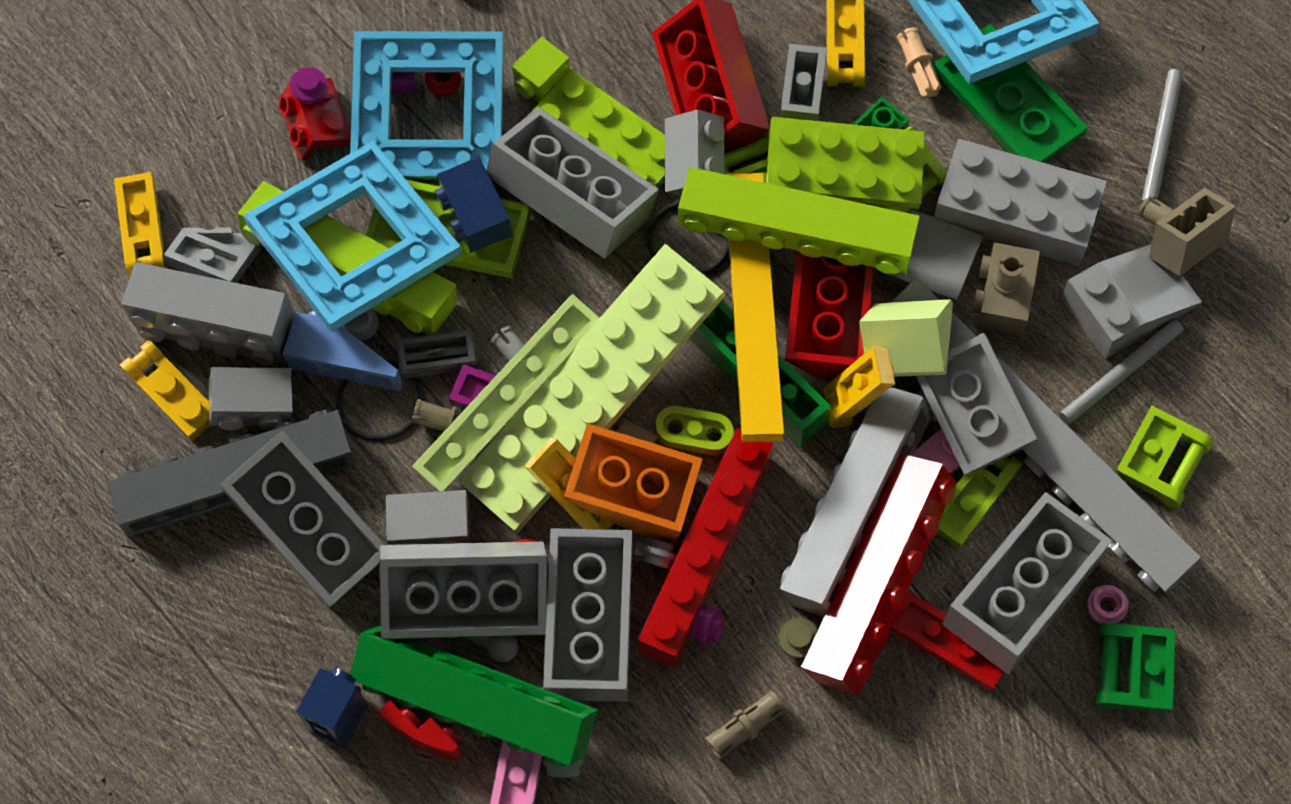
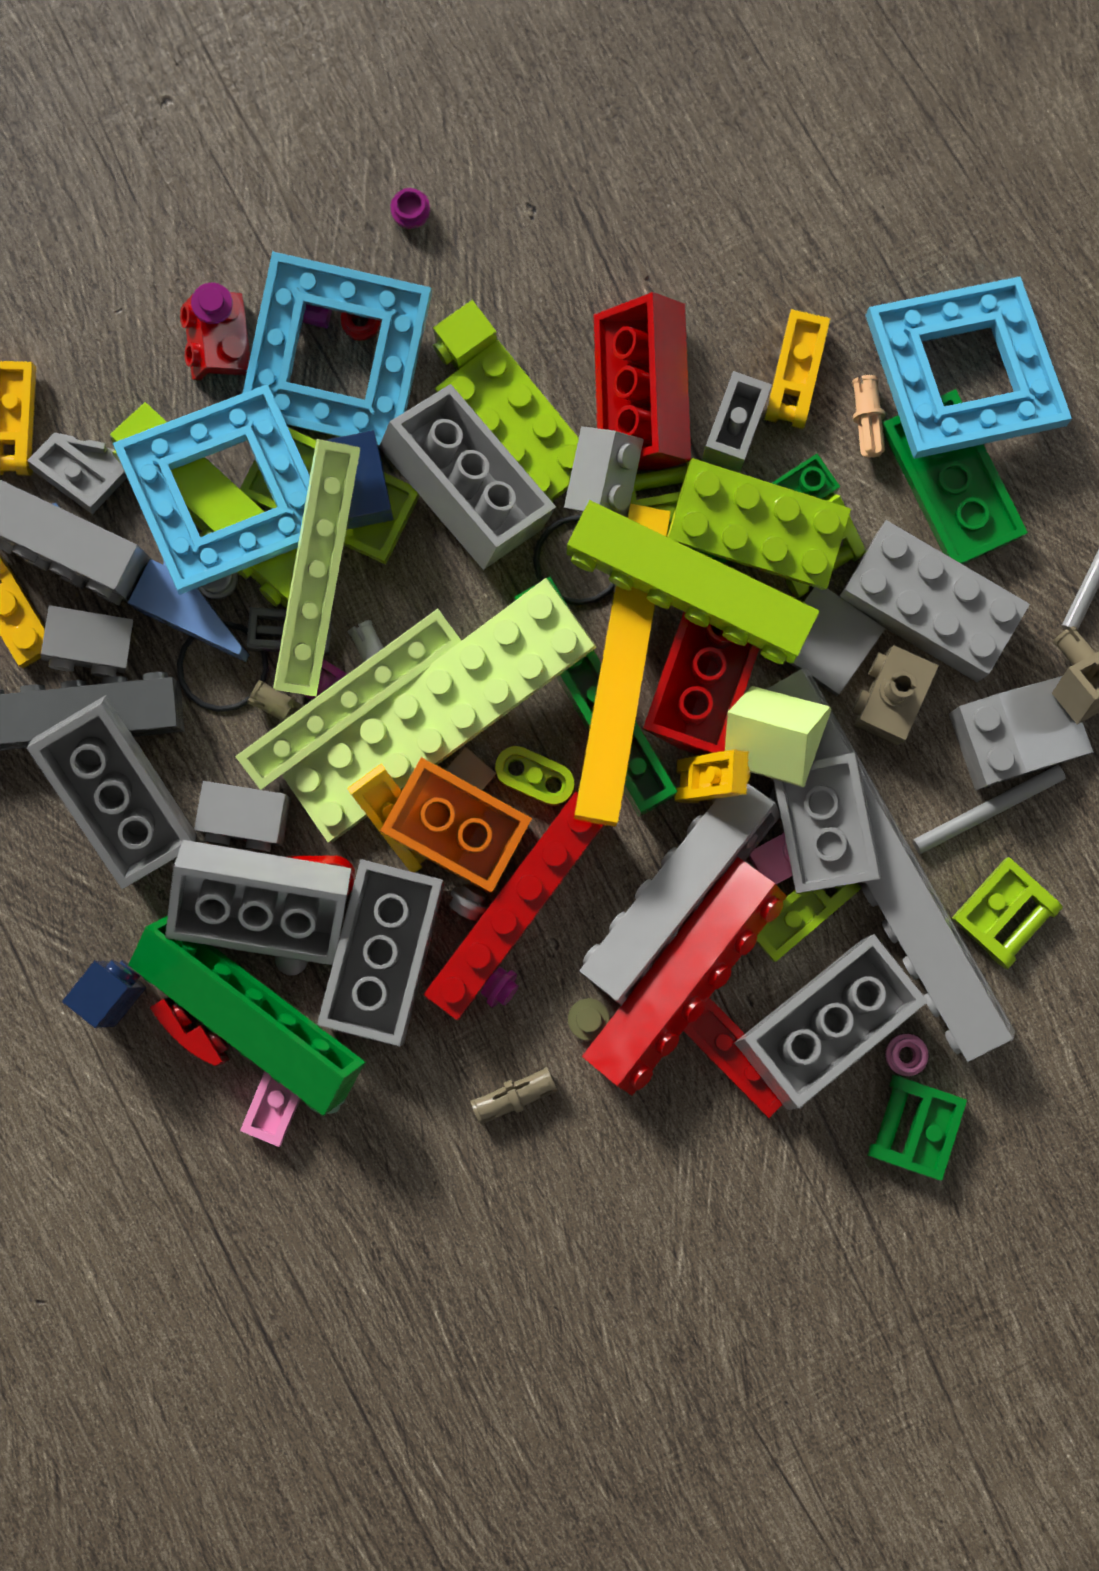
camera: 10 degrees right, 15 degrees up
(453, 282) = (316, 567): none -> yellowish green plate

